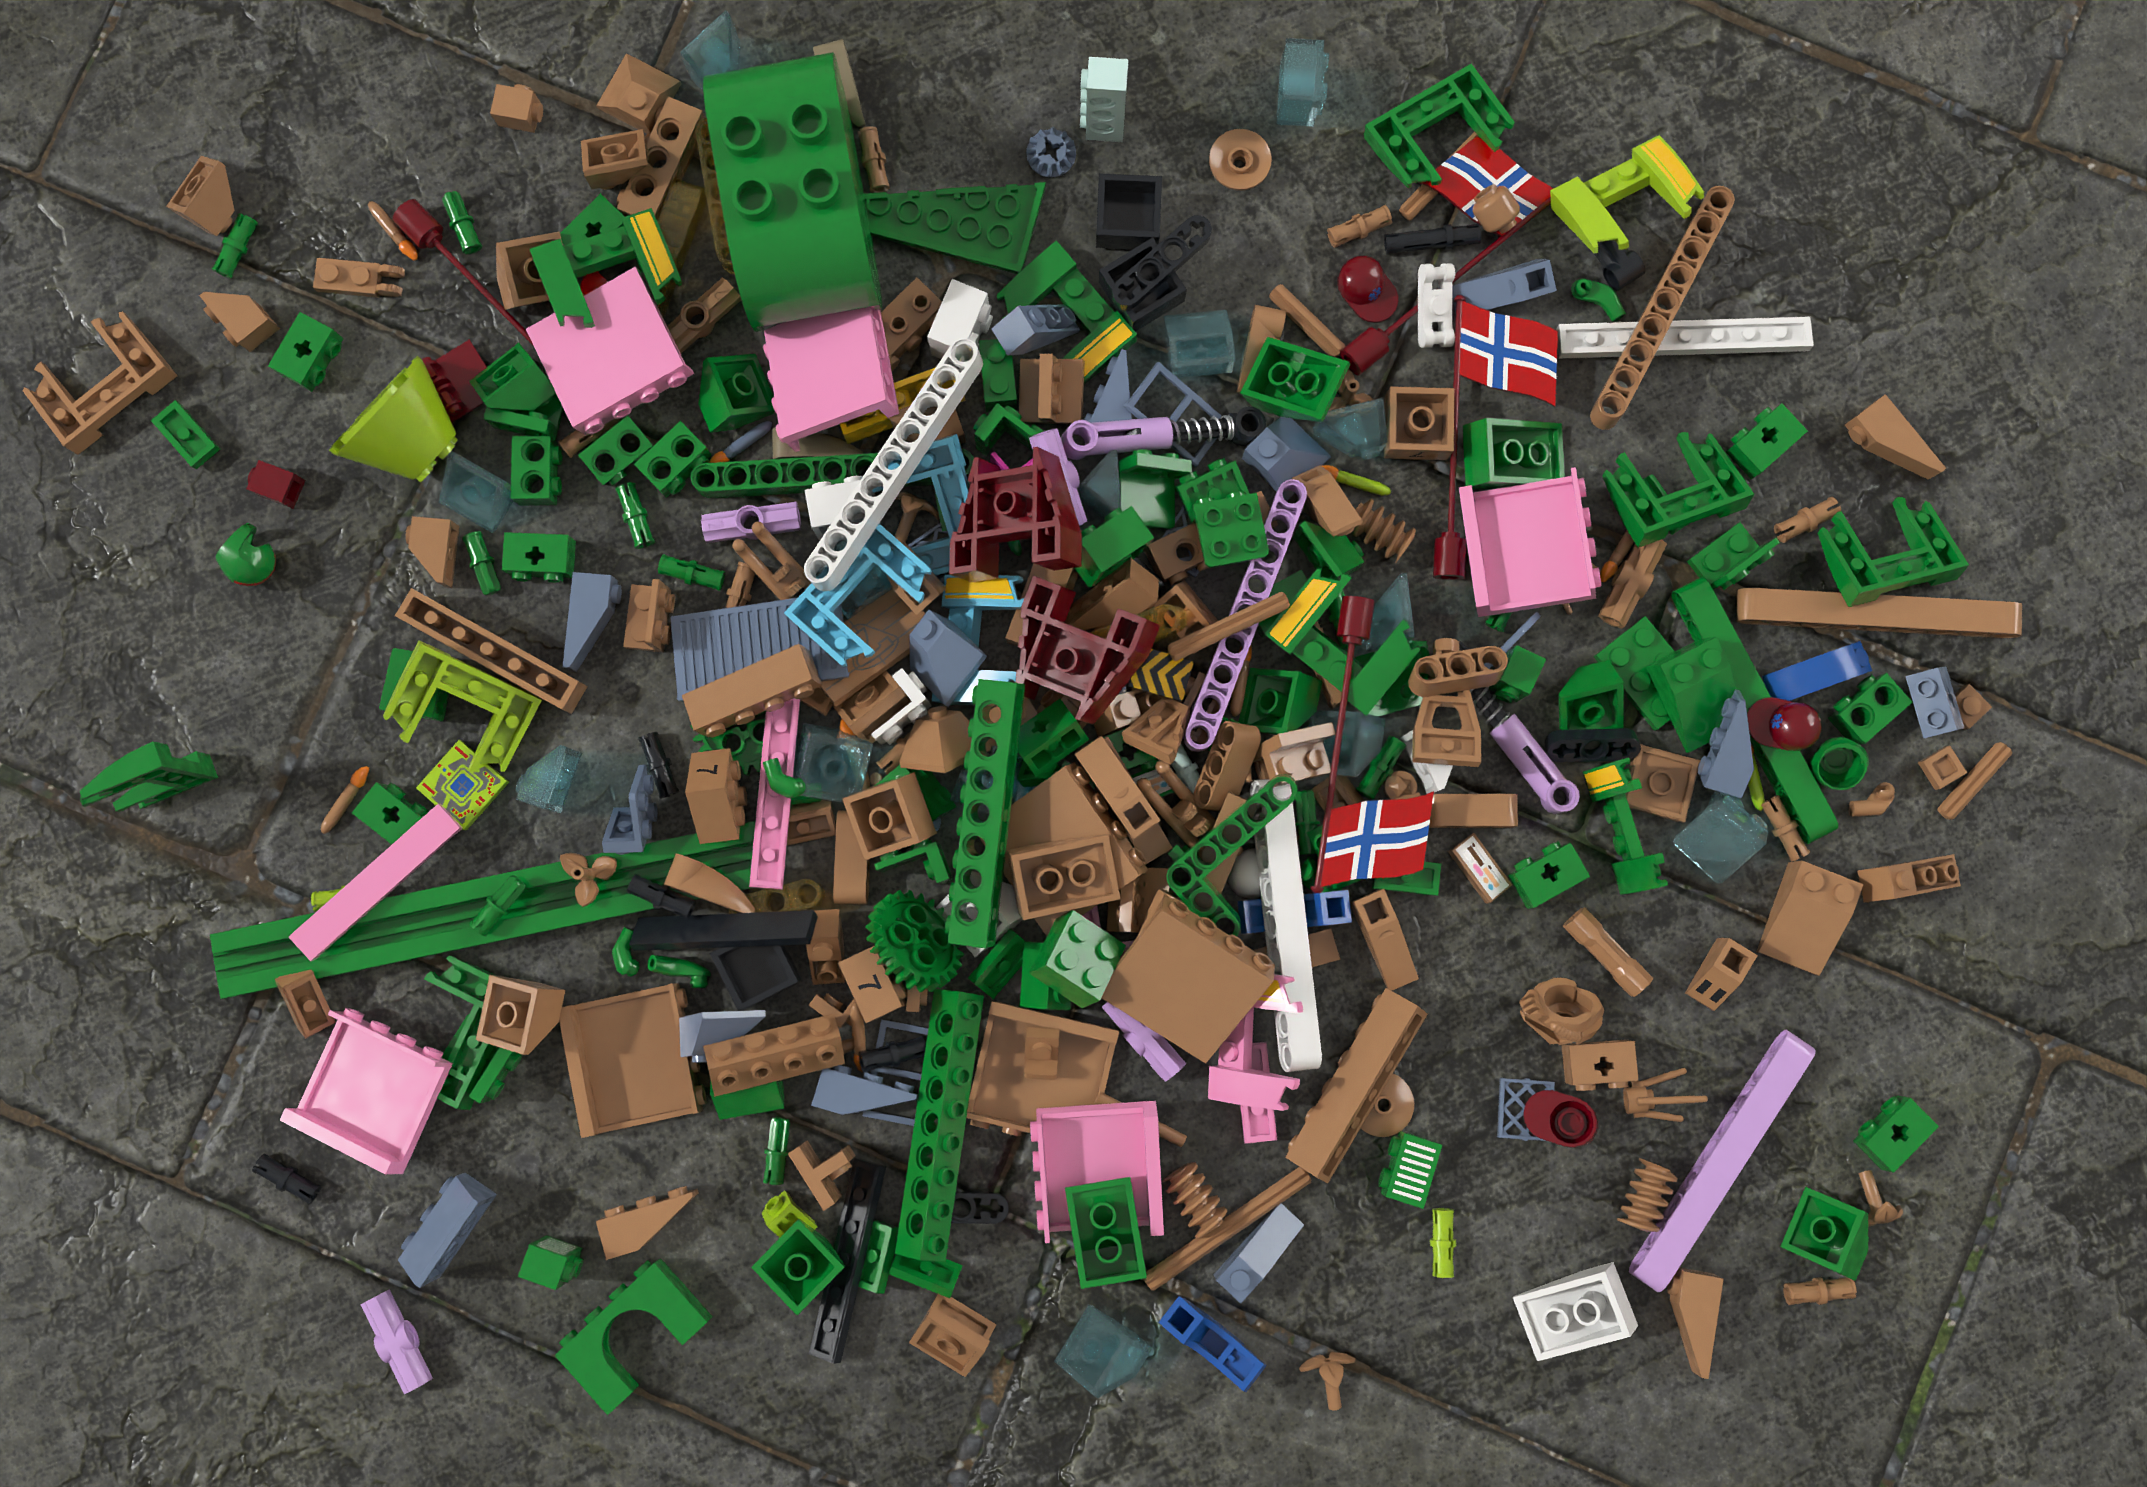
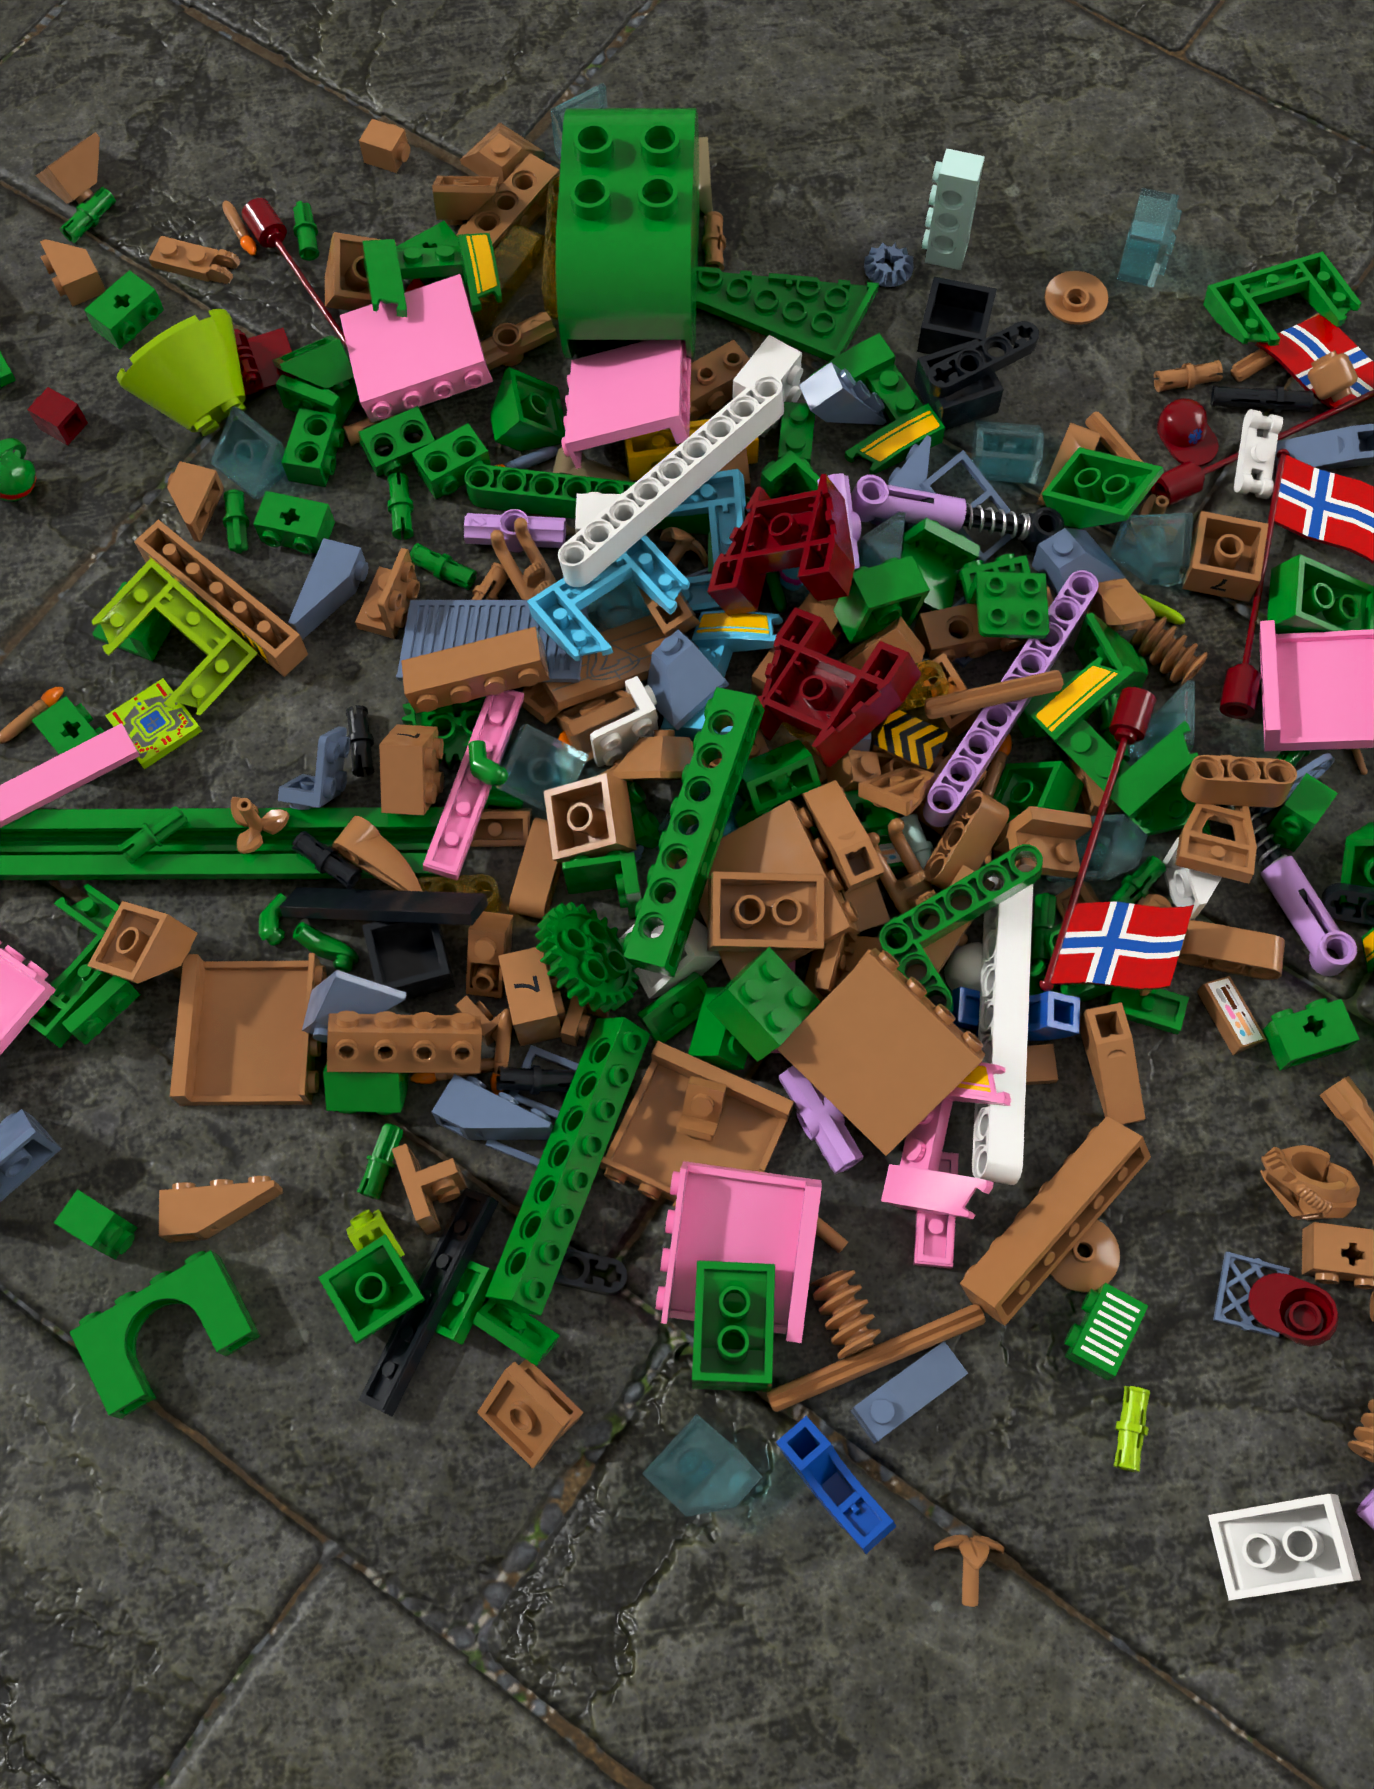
camera: 15 degrees right, 15 degrees down
(549, 779) = (245, 728): clear light blue slope -> none
(1051, 390) = (849, 453): medium nougat bracket -> none

